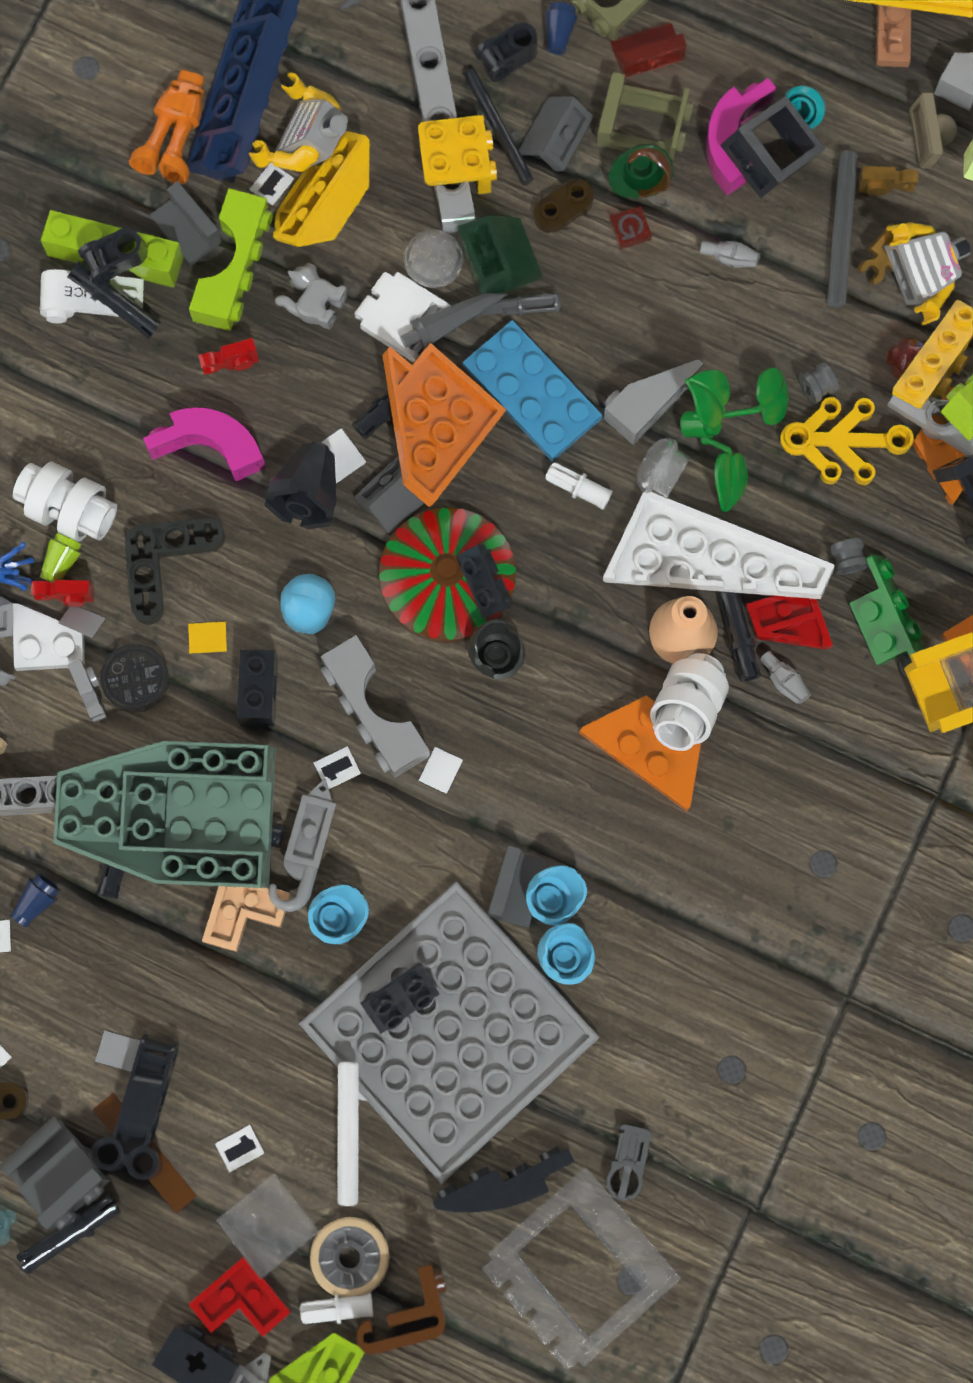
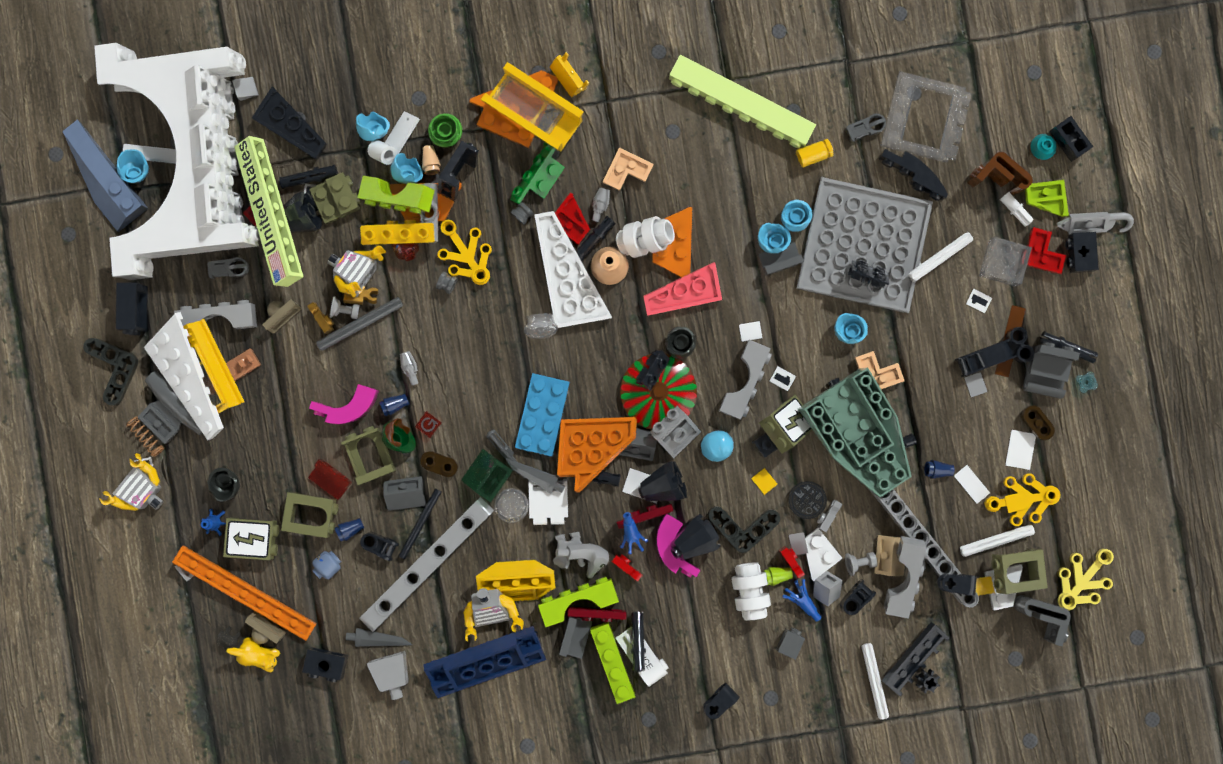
camera: 125 degrees left, 10 degrees up
(110, 255) = (623, 656): black piece -> none
(182, 110) = (518, 681): orange piece -> none
(196, 467) = (695, 539): none -> black cone
(203, 265) = (589, 613): none -> dark red plate
(264, 712) = (786, 425): none -> panel
(270, 390) = (631, 533): none -> blue piece
(271, 183) = (526, 611): white sticker -> none
(280, 324) = (596, 556): none -> light grey animal
(289, 417) = (652, 512): none -> dark red plate
(306, 845) = (829, 365): light grey plate -> none
(372, 551) = (675, 431): none -> light grey plate
(373, 1257) = (979, 219): wheel -> none
(457, 152) = (451, 531): yellow bracket -> none
(565, 714) = (691, 290): none -> coral wing
(578, 485) = (574, 360): white axle -> none
(643, 1052) = (814, 153): none -> yellow piece
(646, 400) = (514, 357): light grey slope -> none
(693, 197) = (393, 404): none -> dark blue cone
(710, 395) = (501, 321): green plant -> none
(745, 147) = (358, 387): black window -> none
(798, 995) = (741, 102): none -> yellowish green brick
(808, 104) = (310, 382): teal cone -> none
(820, 754) = (624, 164): none -> light nougat plate
(888, 209) = (336, 307): none -> light grey piece

